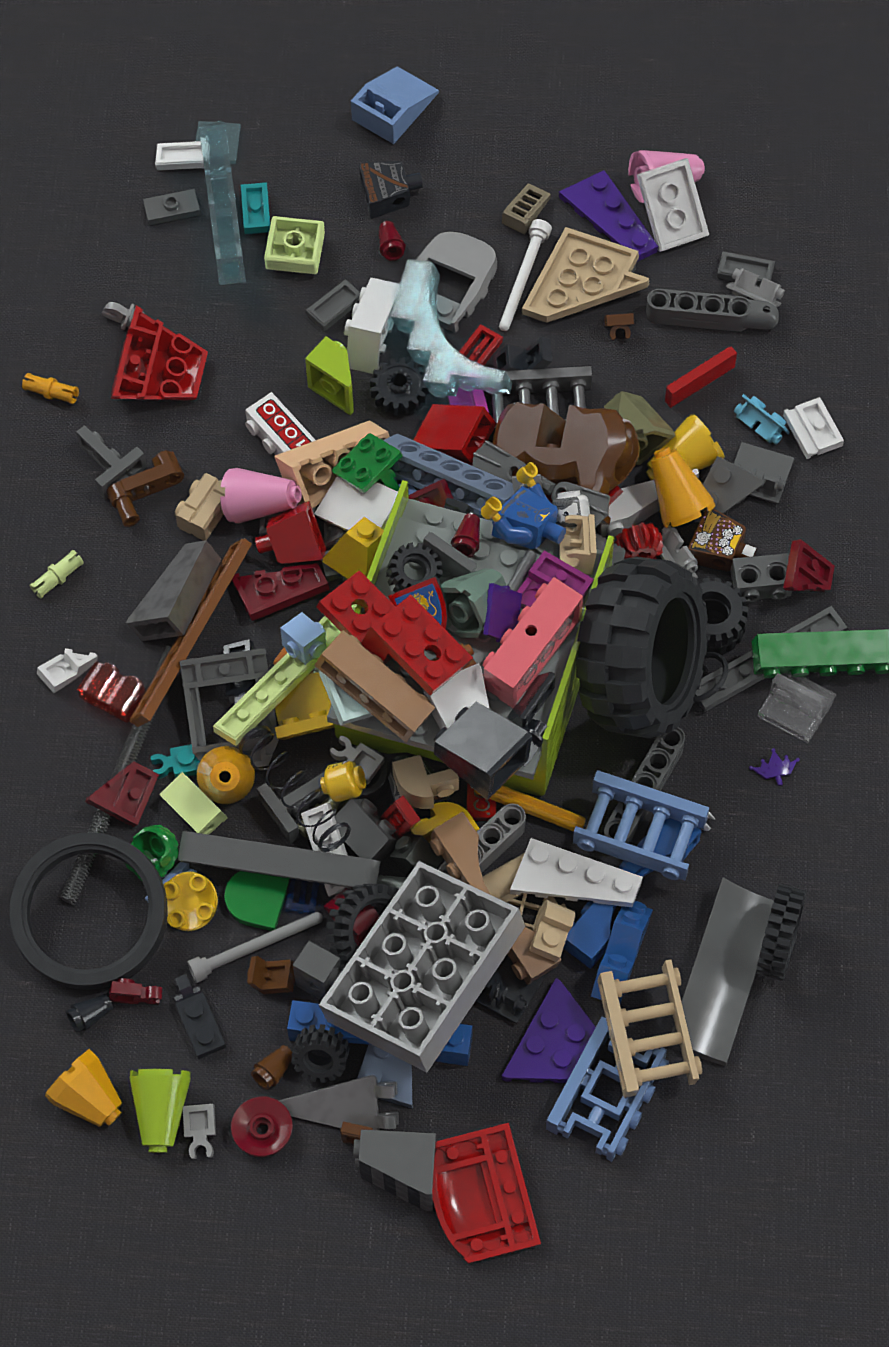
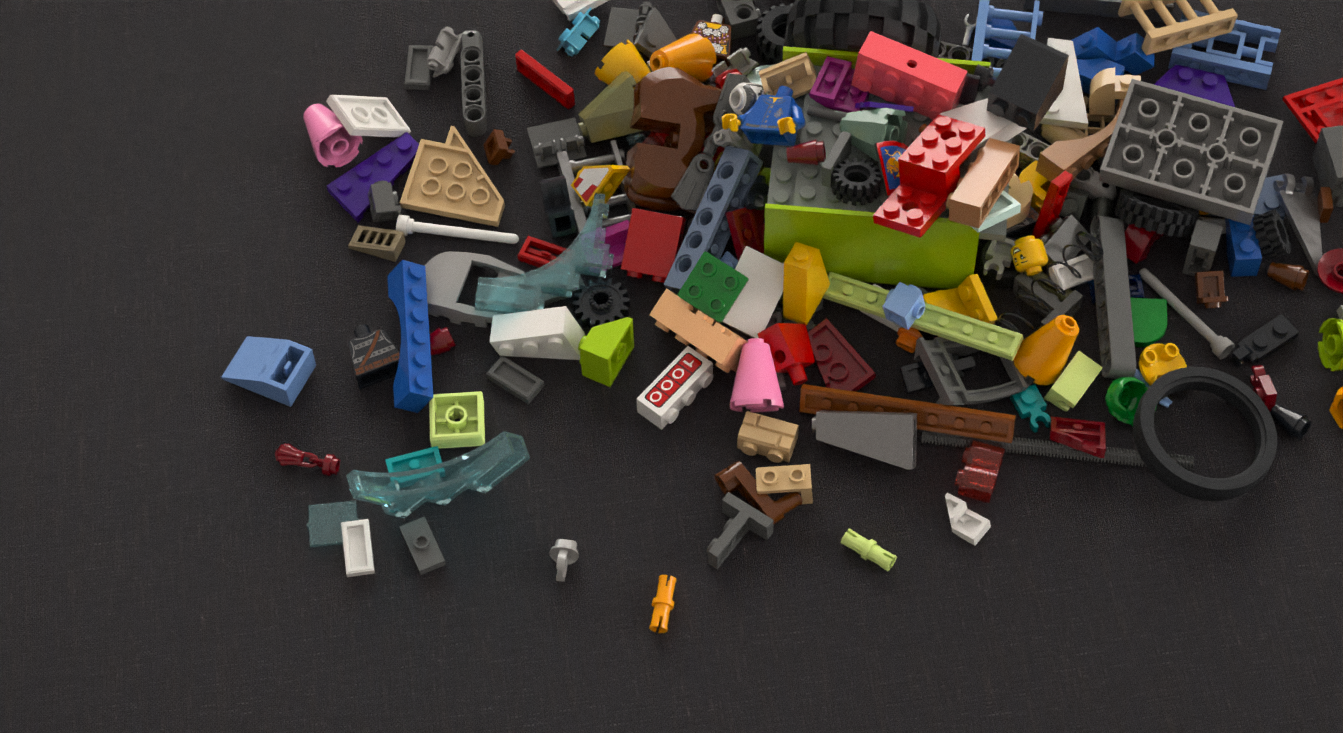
camera: 100 degrees left, 5 degrees down
(142, 509) = (785, 479): none -> tan bracket
(157, 363) = (620, 514): red wedge -> none
(295, 110) = (290, 455): none -> dark red piece
(397, 214) = (414, 373): none -> blue arch
(533, 386) = (600, 180): none -> slope
(566, 210) = (383, 202): none -> dark grey brick
(615, 375) = (554, 138): none -> dark grey hinge

